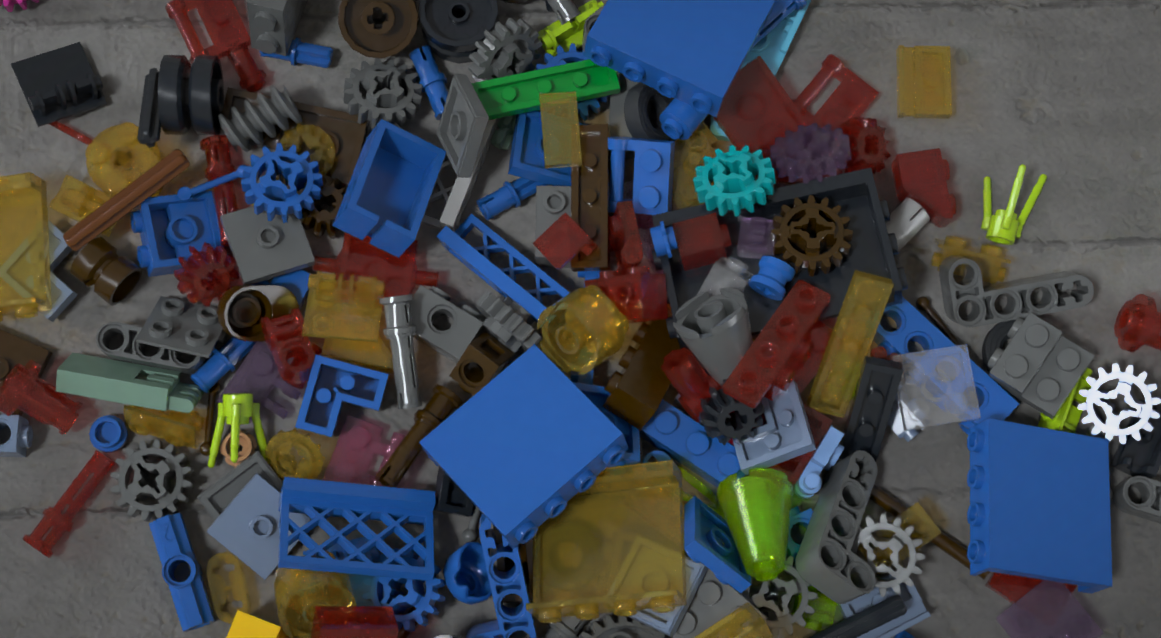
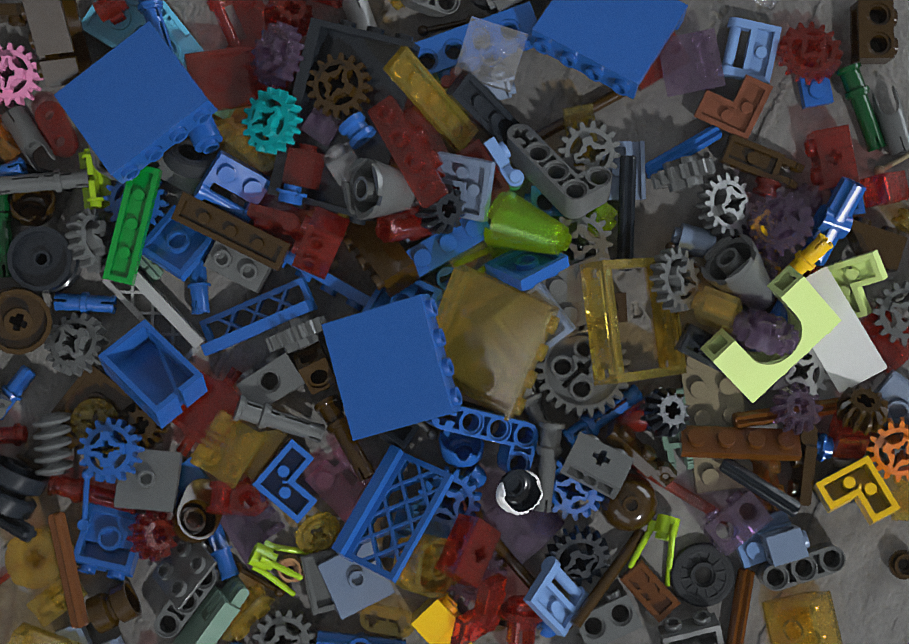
camera: 65 degrees left, 10 degrees up
(448, 611) = (477, 474): none -> blue hinge
(462, 125) = (131, 298): dark grey plate -> none
(560, 129) = (170, 228): clear yellow tile -> none
(564, 241) = (257, 267): clear red panel -> none
(582, 330) = (329, 285): clear yellow brick -> none

